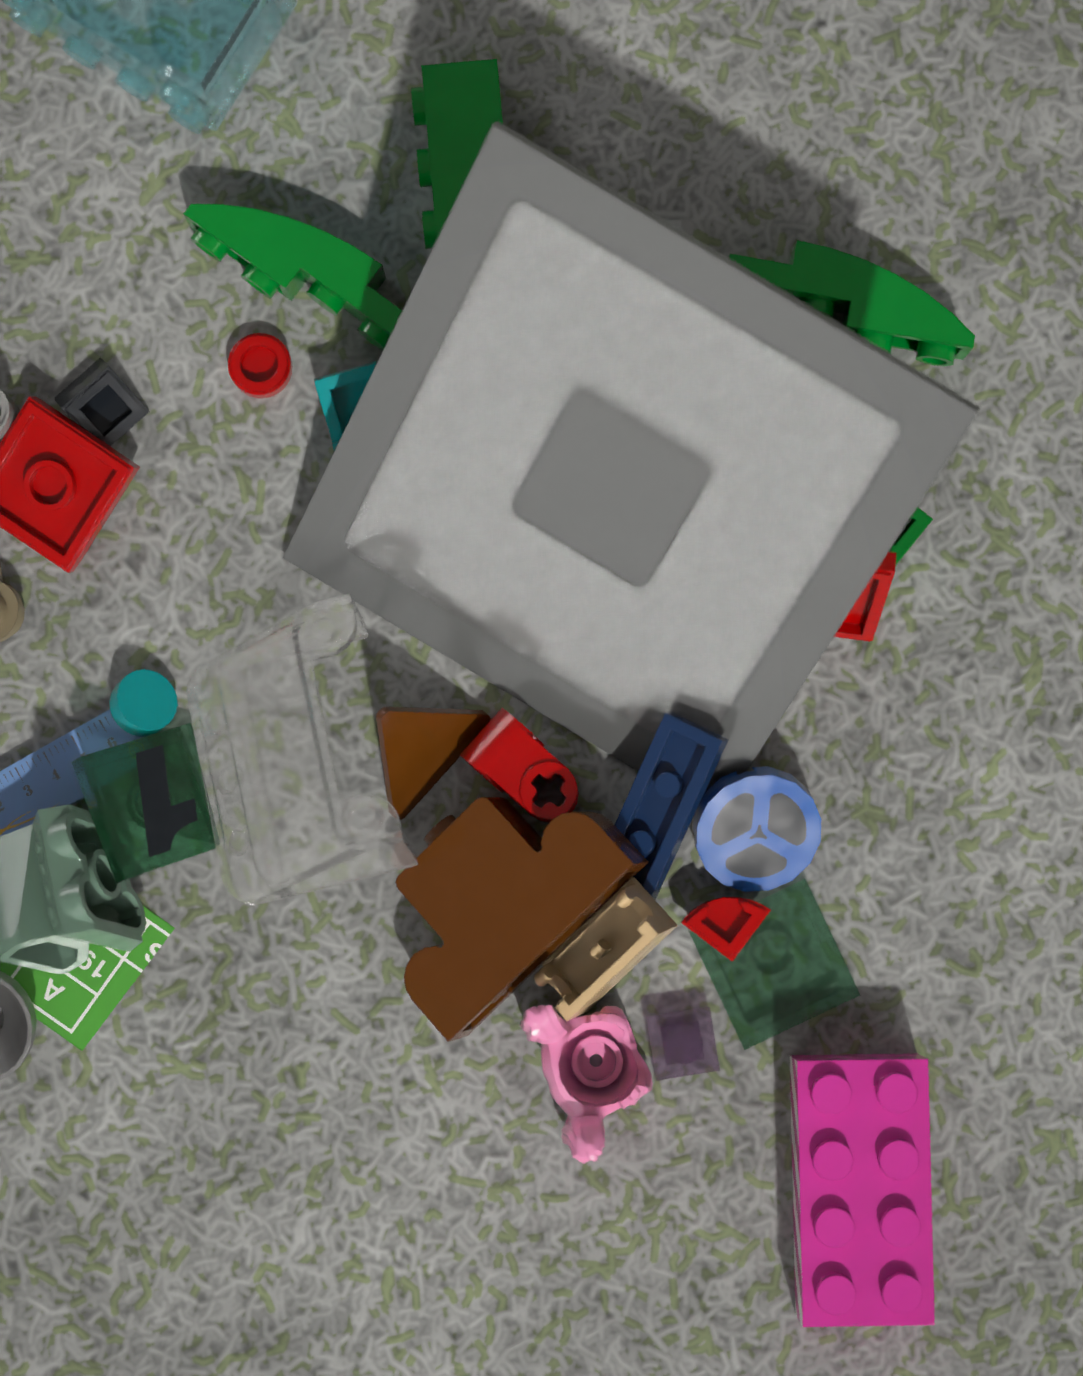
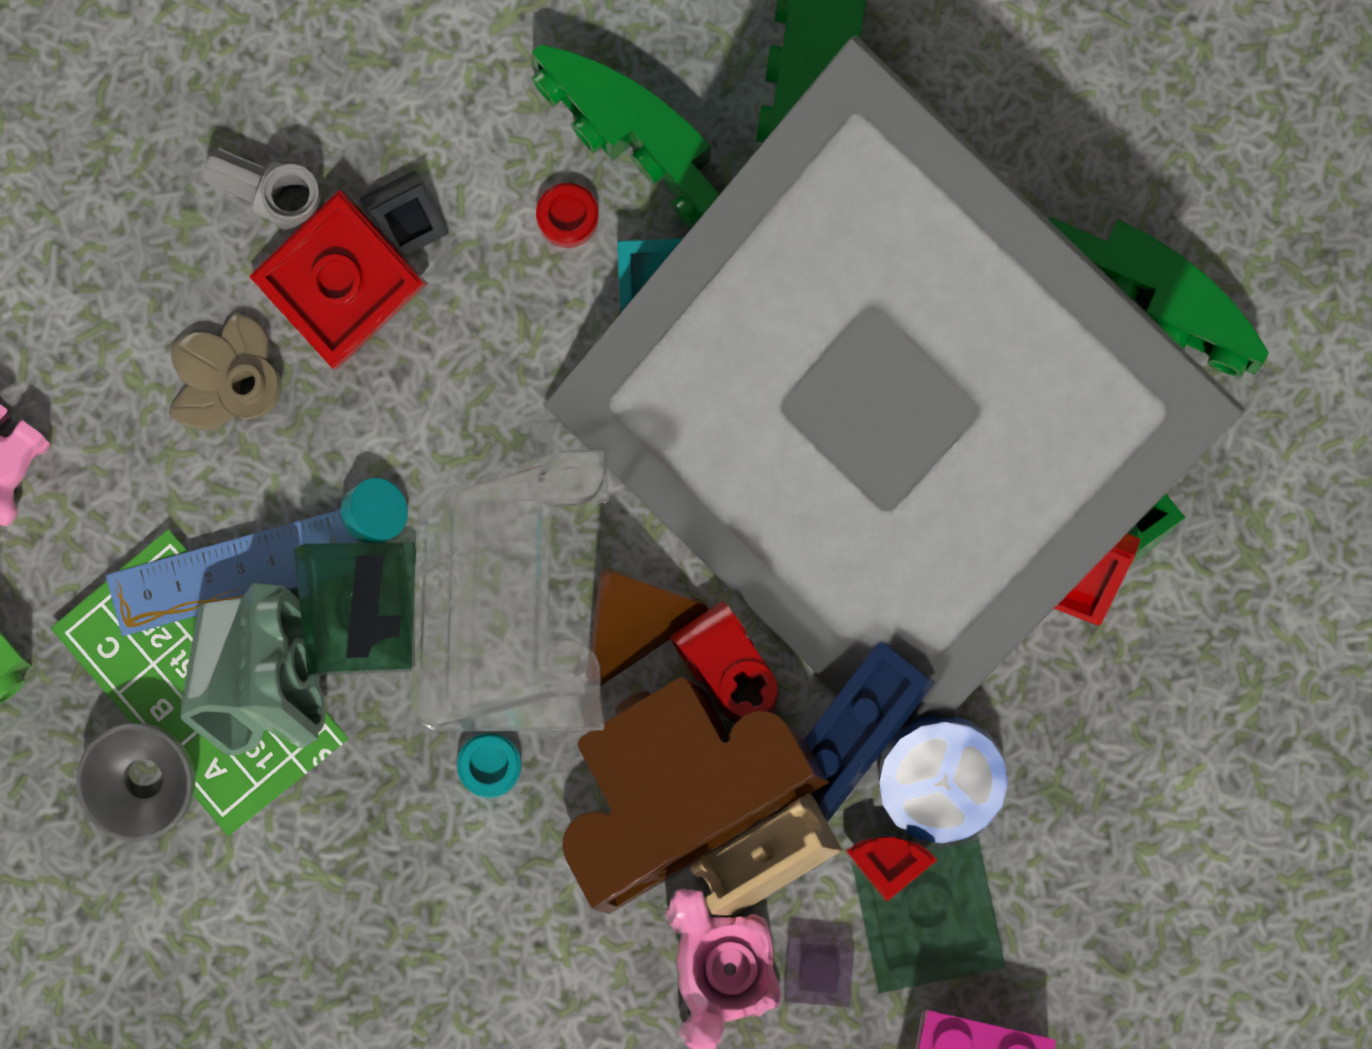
camera: 10 degrees right, 5 degrees down
(316, 922) = (489, 765): none -> teal tile

